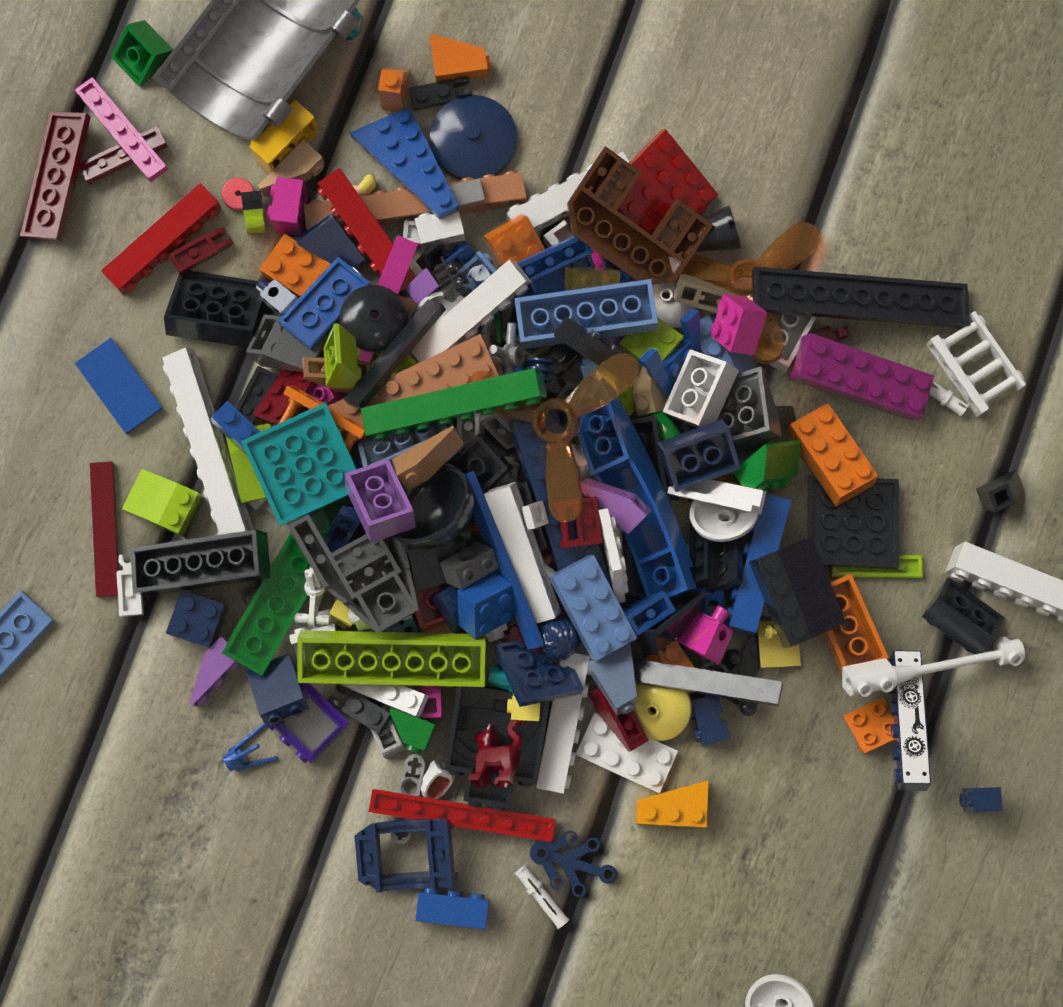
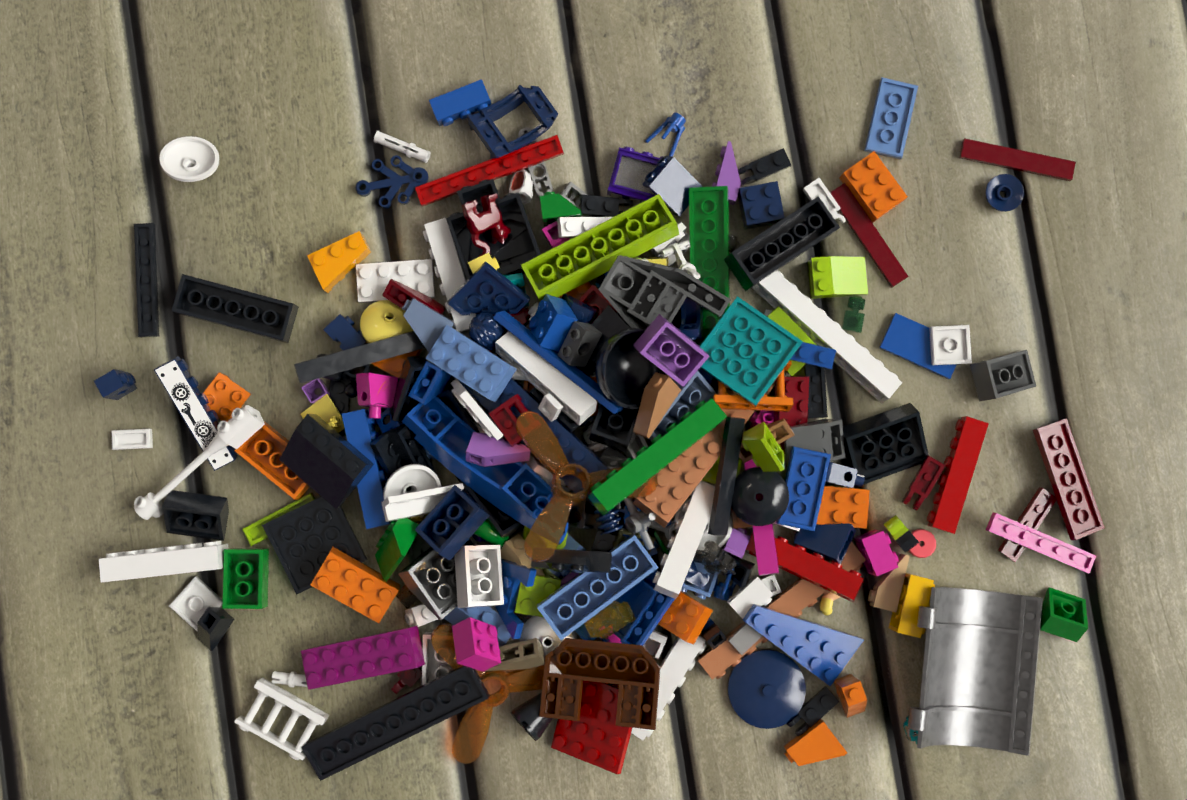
camera: 150 degrees right, 5 degrees up
(56, 311) = (1003, 375): none -> dark grey slope
(69, 574) = (873, 186): none -> orange brick
(90, 369) = (950, 345): none -> white tile
(166, 660) = (765, 166): none -> black hinge
(172, 449) = (852, 319): none -> clear green plate
(496, 216) = (711, 631): none -> black leg
(776, 672) = (309, 390): none -> medium lavender piece
(784, 391) = (419, 616): none -> white bracket
(813, 813) = (235, 308): none -> black brick
(894, 901) = (146, 280): none -> black tile
(943, 522) = (245, 578): none -> green brick
(993, 735) = (132, 439): none -> white tile
(1008, 527) = (194, 601): none -> white tile

